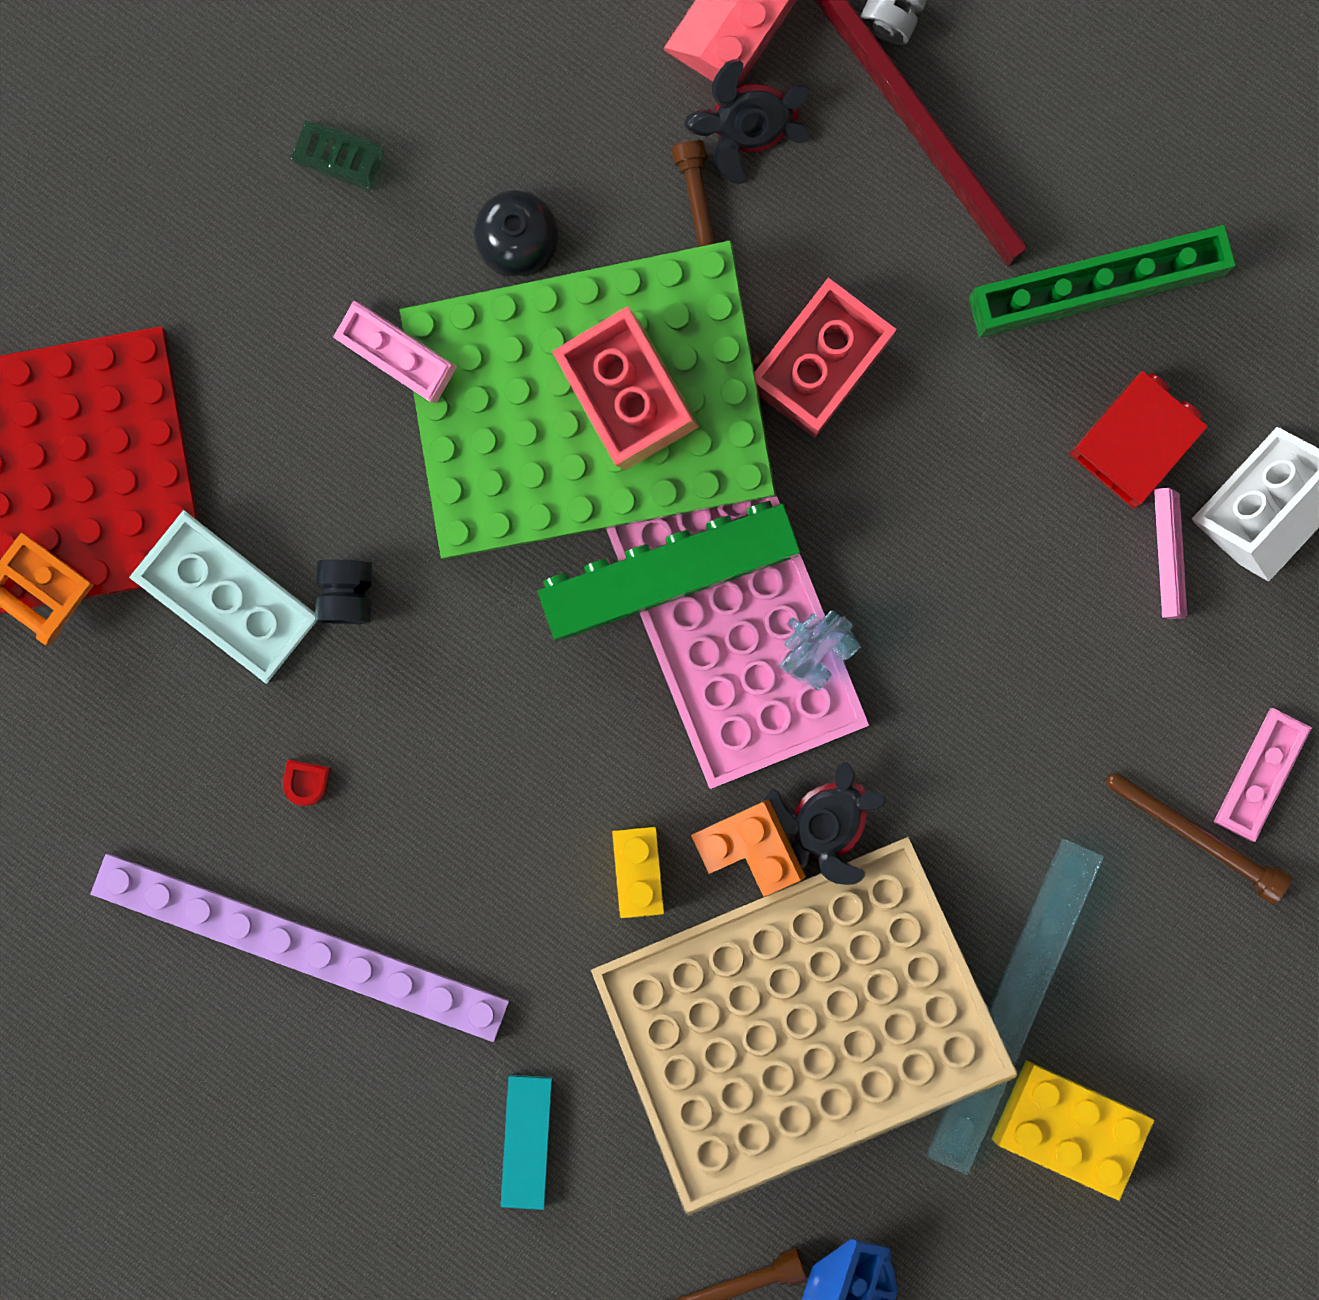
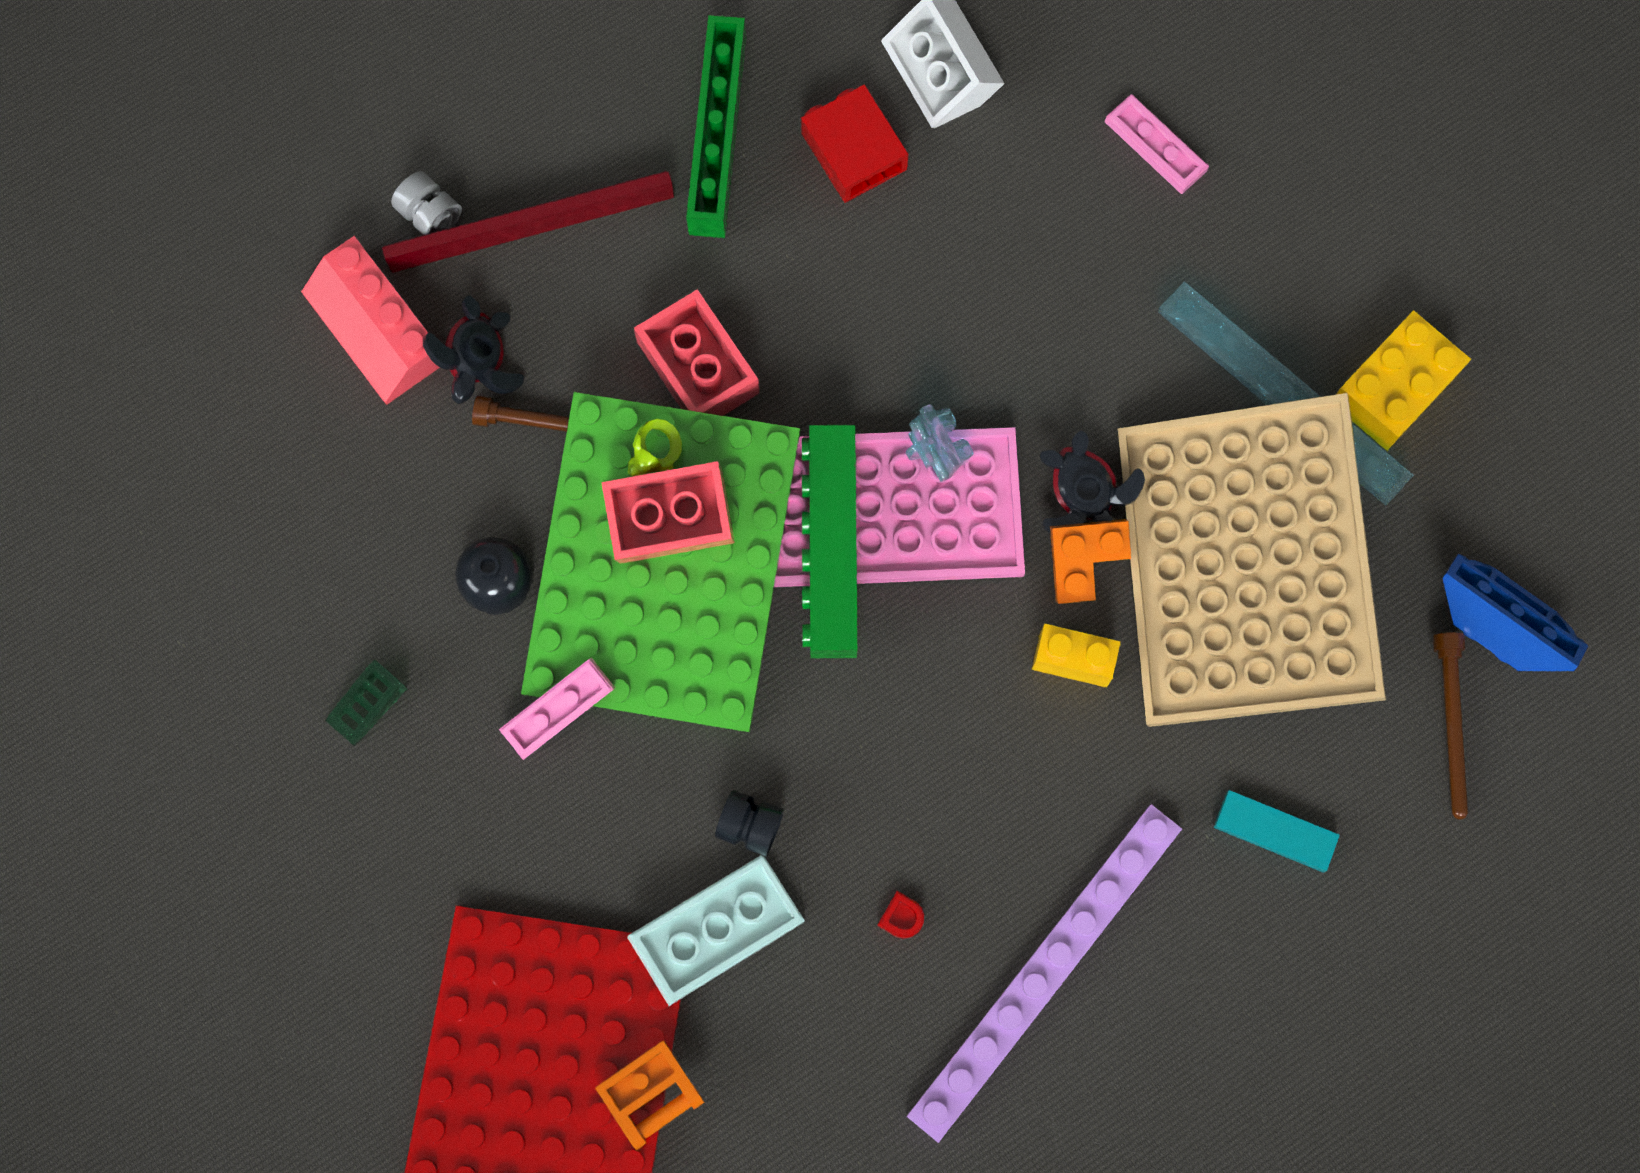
camera: 70 degrees left, 10 degrees down
(671, 344) = (645, 462): none -> lime piece
(1170, 553) = (955, 149): bright pink tile -> none
(1269, 881) = (1246, 165): reddish brown piece -> none

